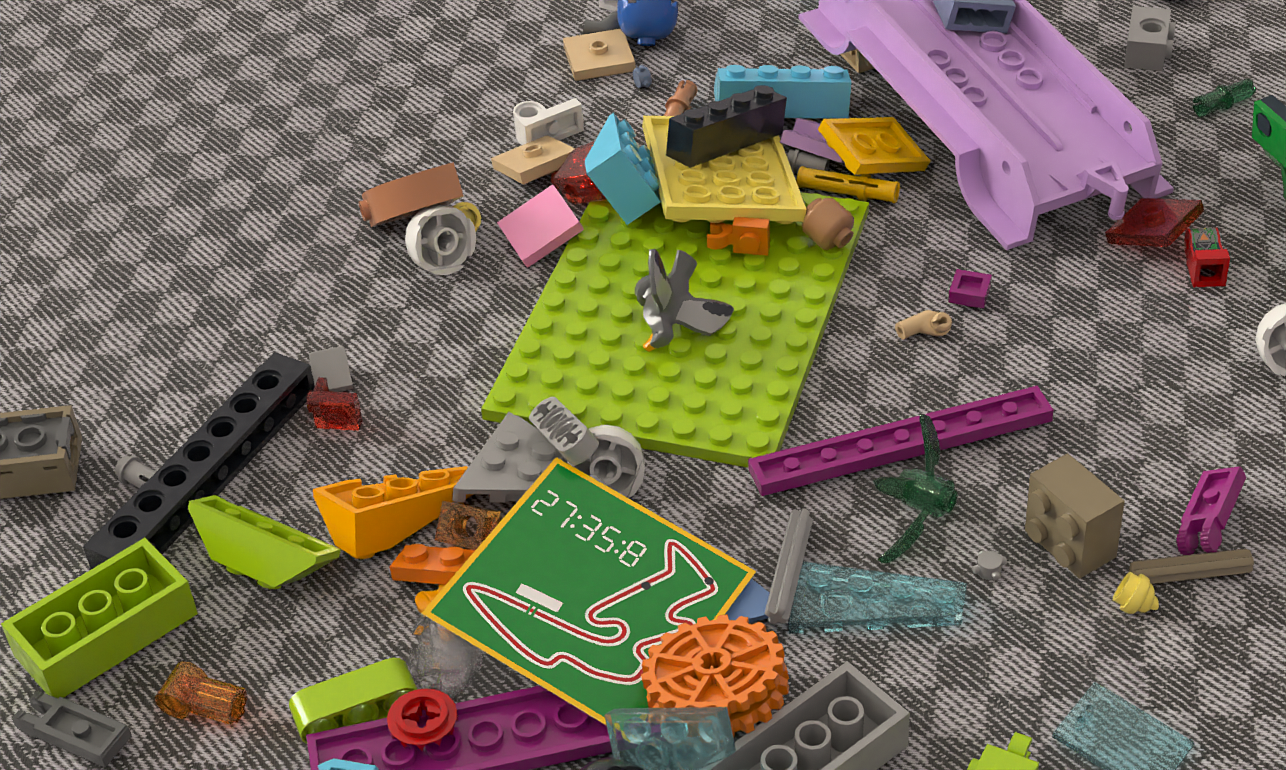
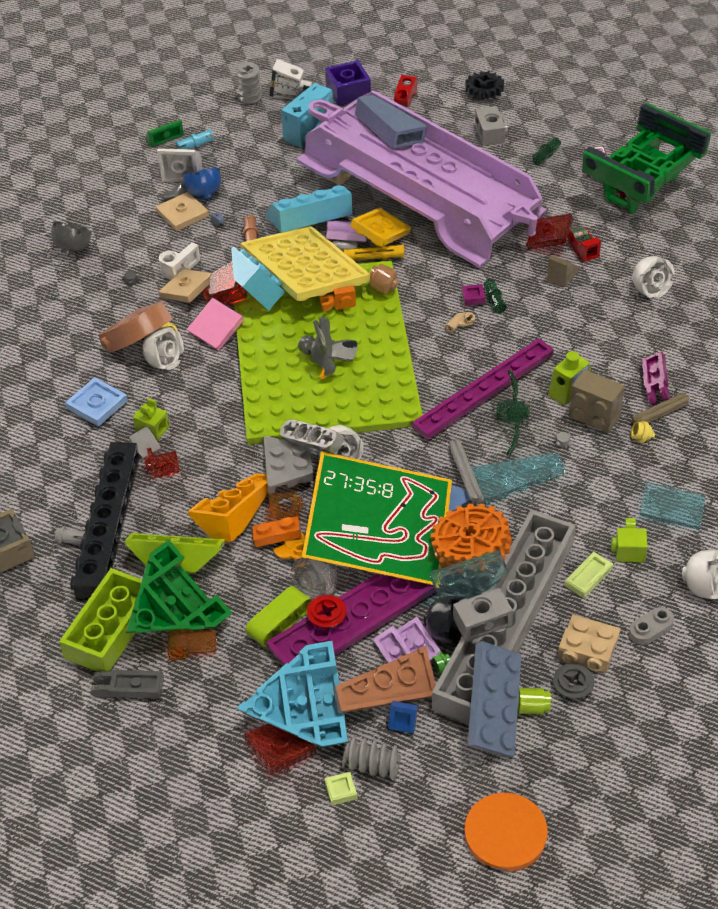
camera: 25 degrees left, 5 degrees up
(200, 612) = (171, 598): none -> green wedge
(303, 290) = (96, 401): none -> light blue plate
(359, 337) = (151, 417): none -> lime brick
(411, 49) = (70, 237): none -> dark grey cylinder
(466, 129) = (130, 278): none -> dark grey piece
(725, 126) = (297, 237): black brick -> none
(1005, 300) = (494, 296): none -> clear green axle
(1045, 447) = (565, 375): none -> lime torso
(1140, 289) = (560, 271): none -> dark tan slope

